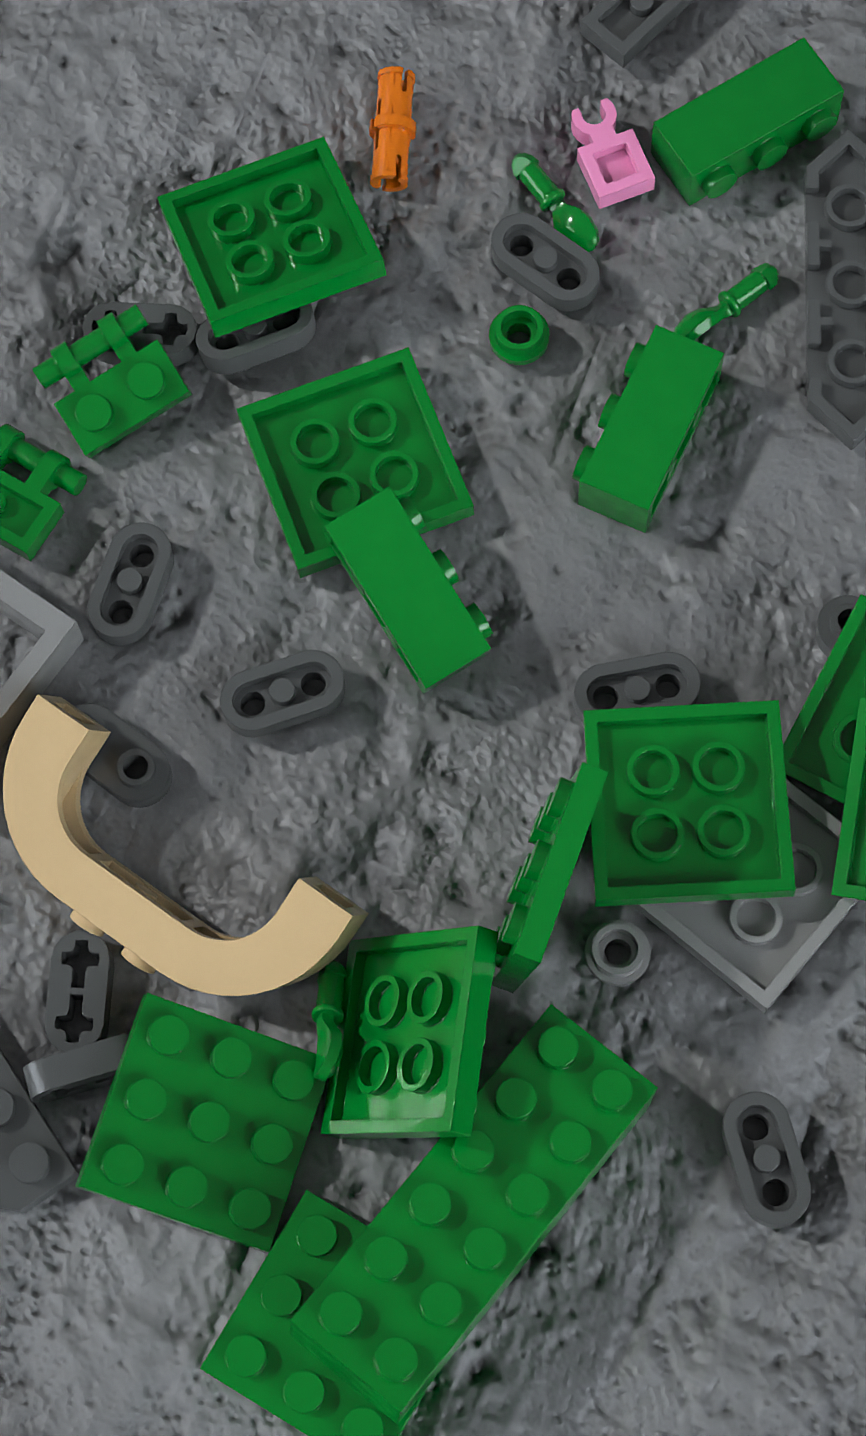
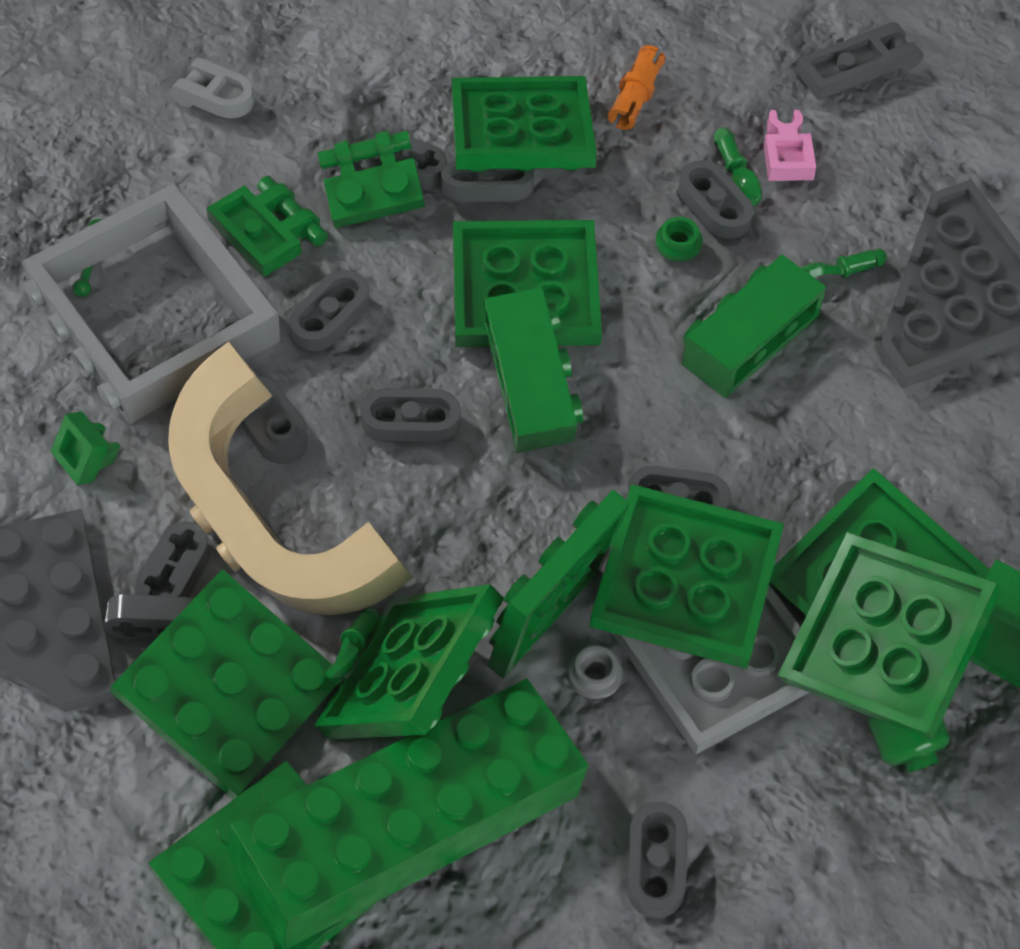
camera: 10 degrees right, 15 degrees down
(747, 122) = (897, 154): green brick -> none

